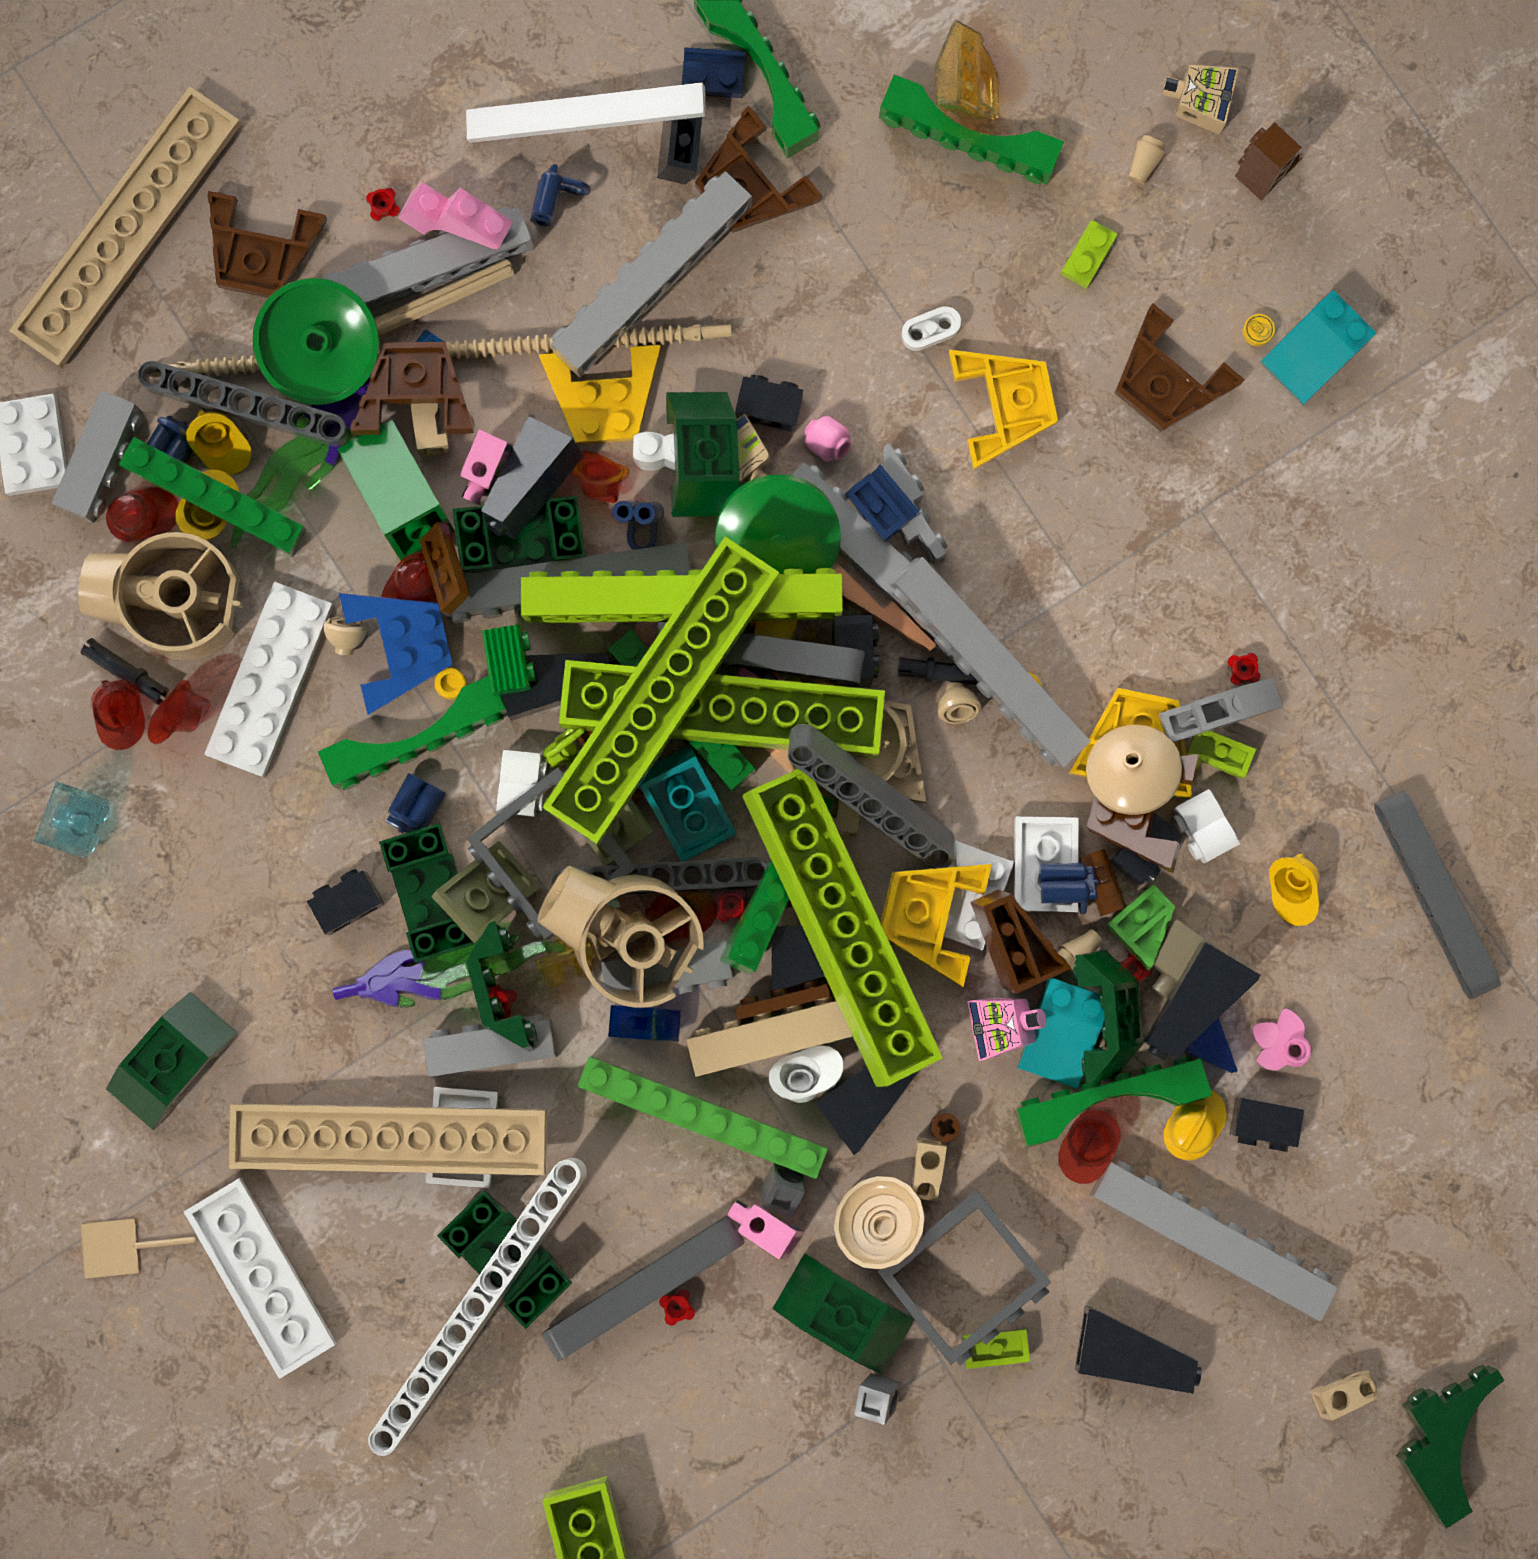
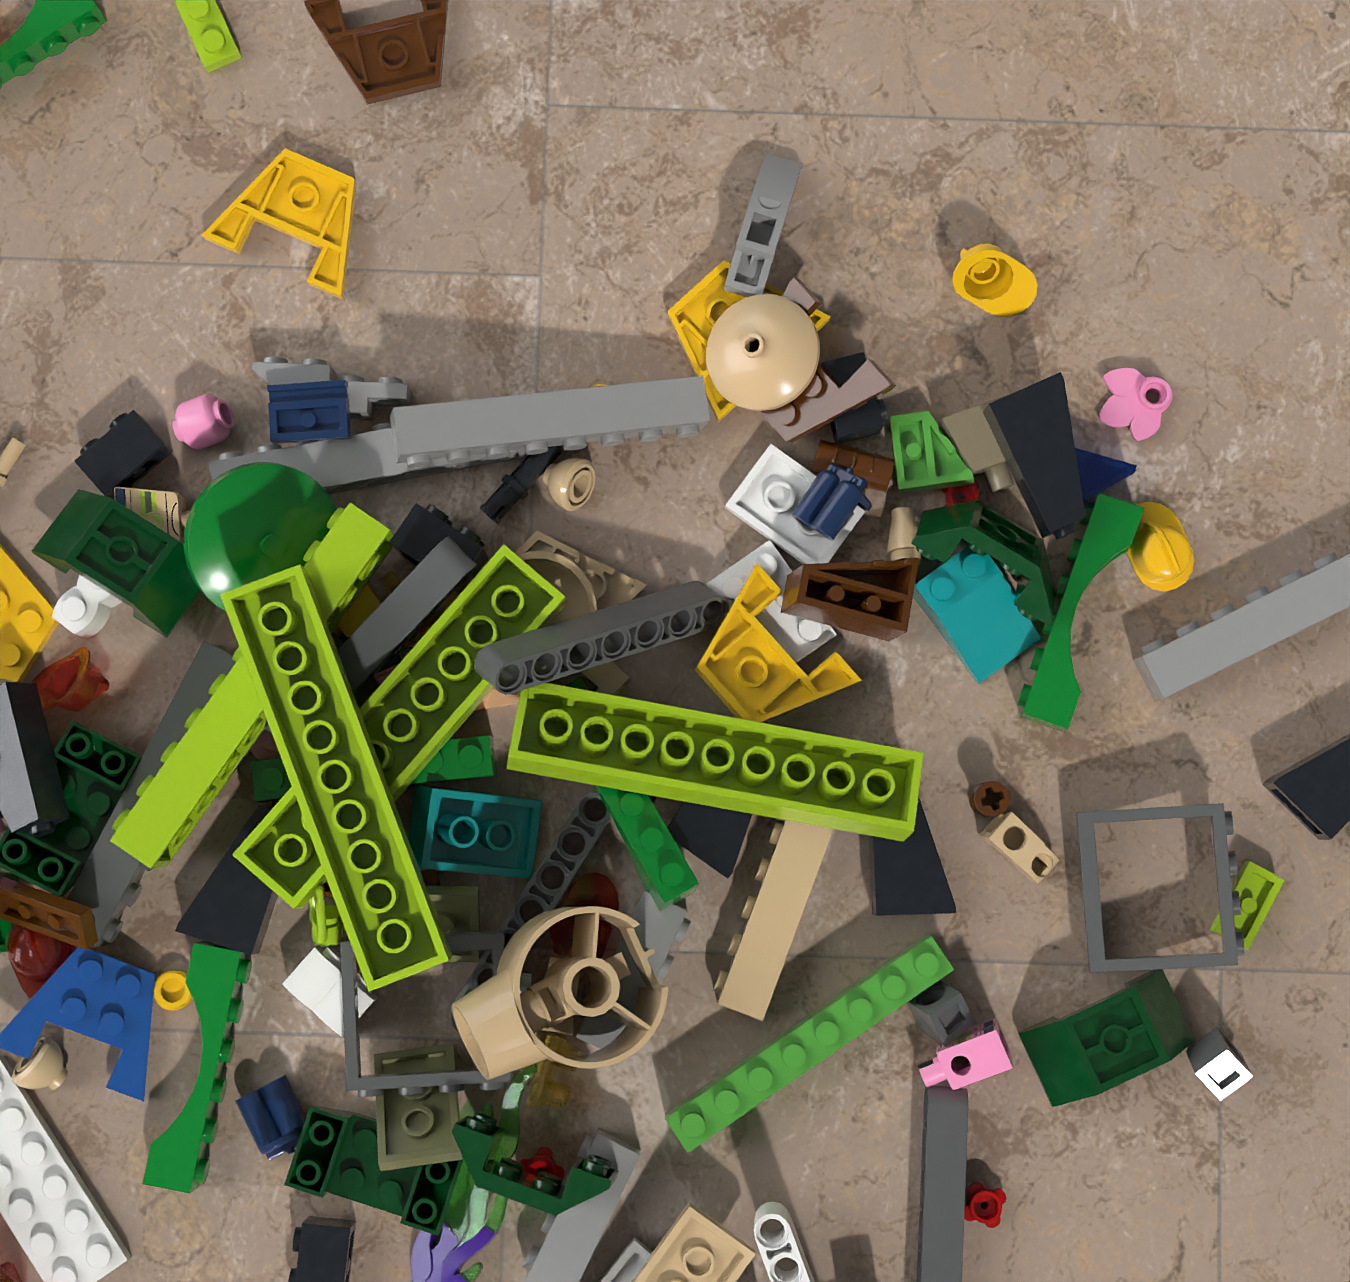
camera: 55 degrees left, 0 degrees up
(507, 659) = (190, 914): green brick -> none
(644, 513) = (139, 664): dark blue piece -> none
(644, 1023) = (677, 1031): clear blue slope -> none
(723, 900) = (601, 863): red plate -> none
(781, 999) = (744, 875): reddish brown plate -> none
(806, 1073) = (838, 903): white piece -> none
(879, 1222) = (1042, 935): tan hat -> none
(890, 617) = (433, 487): nougat slope -> none
(929, 328) = (166, 240): white plate -> none
(1003, 1025) = (927, 666): bright pink torso -> none
(1089, 1146) = (1111, 667): clear red piece -> none
(1205, 826) = (868, 324): white brick -> none
(1222, 753) = (807, 255): lime plate -> none
(1250, 662) = (733, 164): red plate -> none
(1266, 1122) = (1205, 474): black brick -> none
(1437, 895) = (1094, 147): dark grey beam -> none

